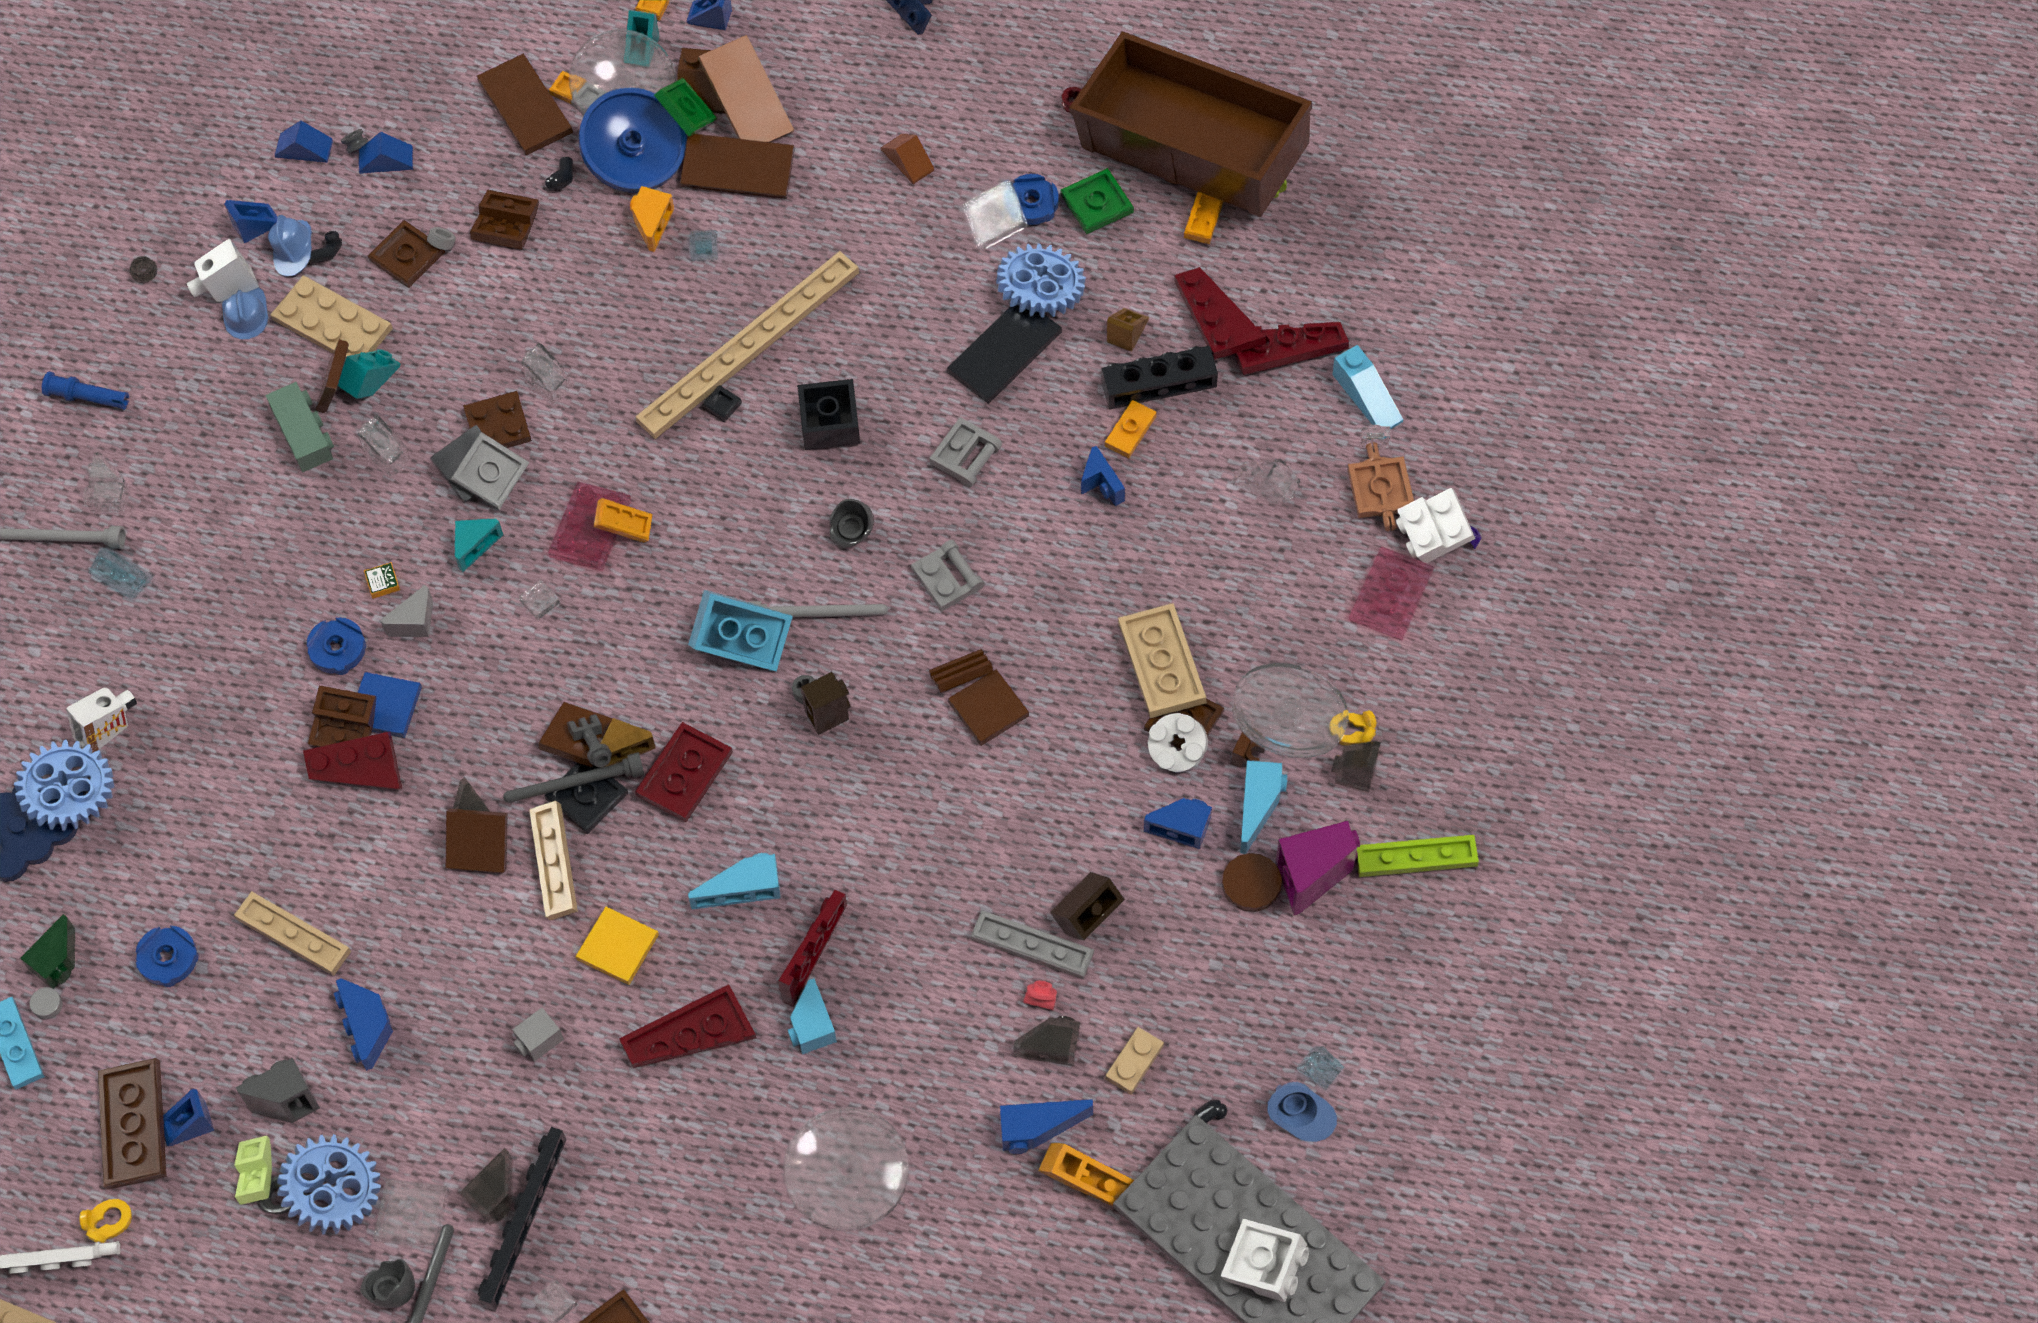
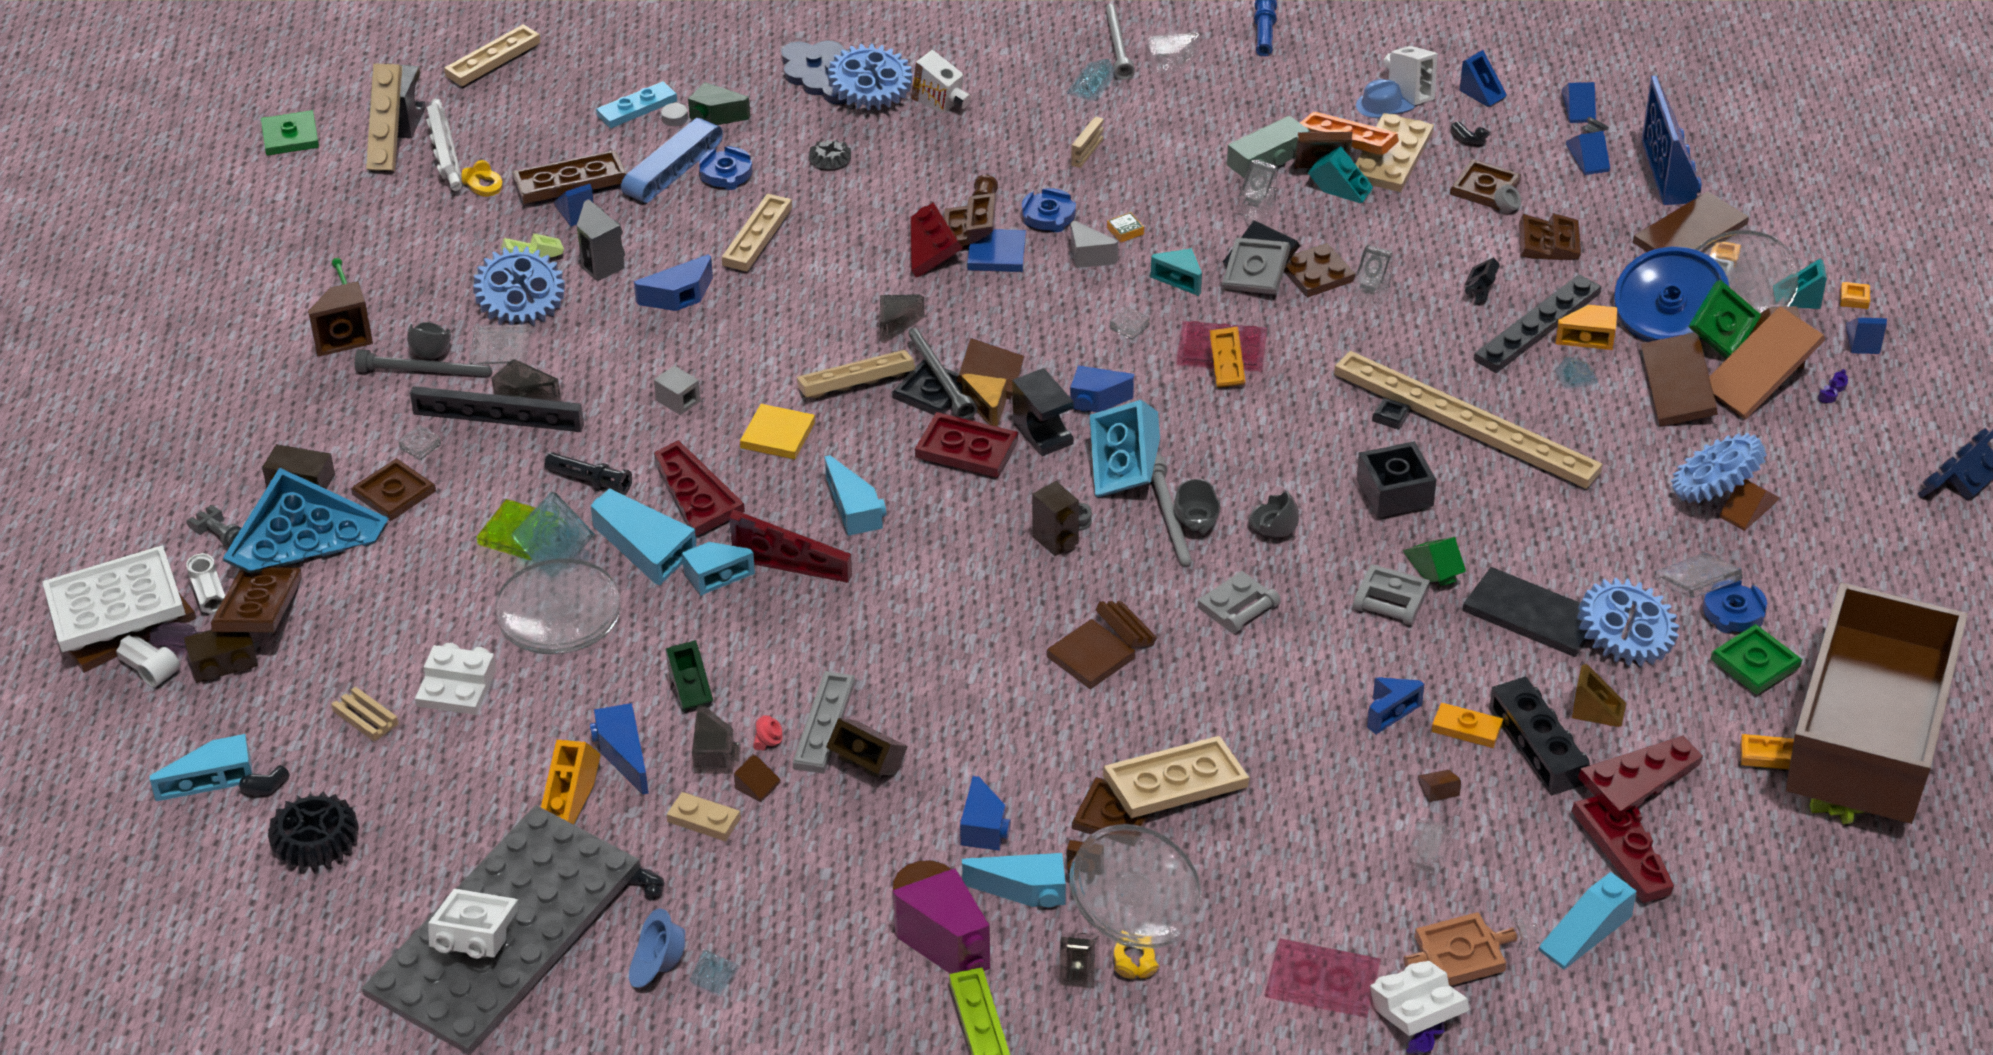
camera: 80 degrees right, 20 degrees down
(138, 1010) = (671, 160): none -> medium blue beam
(141, 263) = (1405, 35): clear smoke plate -> none
(174, 858) = (838, 156): none -> dark grey gear
(237, 591) = (1087, 142): none -> tan tile
(290, 245) = (1465, 105): medium blue piece -> none
(291, 701) = (984, 185): none -> reddish brown bush
(305, 349) = (1363, 136): none -> orange plate
(421, 88) = (1667, 150): none -> blue slope
(476, 840) = (863, 317): reddish brown tile -> none
(553, 287) = (1480, 278): none -> black plate
(561, 177) = (1611, 264): black arm -> none
(599, 753) = (988, 362): dark grey hinge -> none
(626, 258) = (1536, 323): none -> black plate
(633, 644) = (1100, 388): none -> blue slope
(650, 1120) = (599, 474): none -> black pin
(670, 691) = (1037, 411): none -> black piece
(708, 1208) = (501, 526): none -> clear neon green plate
(750, 1165) = (552, 531): none -> clear light blue plate
(751, 1084) = (642, 534): none -> medium azure slope
(767, 51) = (1836, 384): none -> dark purple piece
(827, 584) = (1197, 505): none -> dark grey hair
(900, 159) = (1718, 468): none -> light blue gear
(918, 1276) = (456, 679): none -> white plate
(931, 407) = (1437, 560): none -> green slope
(967, 1053) = (688, 675): none -> dark green slope
(1098, 1010) = (755, 778): none -> reddish brown slope
(1192, 750) = (1086, 789): white plate -> none
(1194, 463) = (1440, 785): none -> reddish brown slope

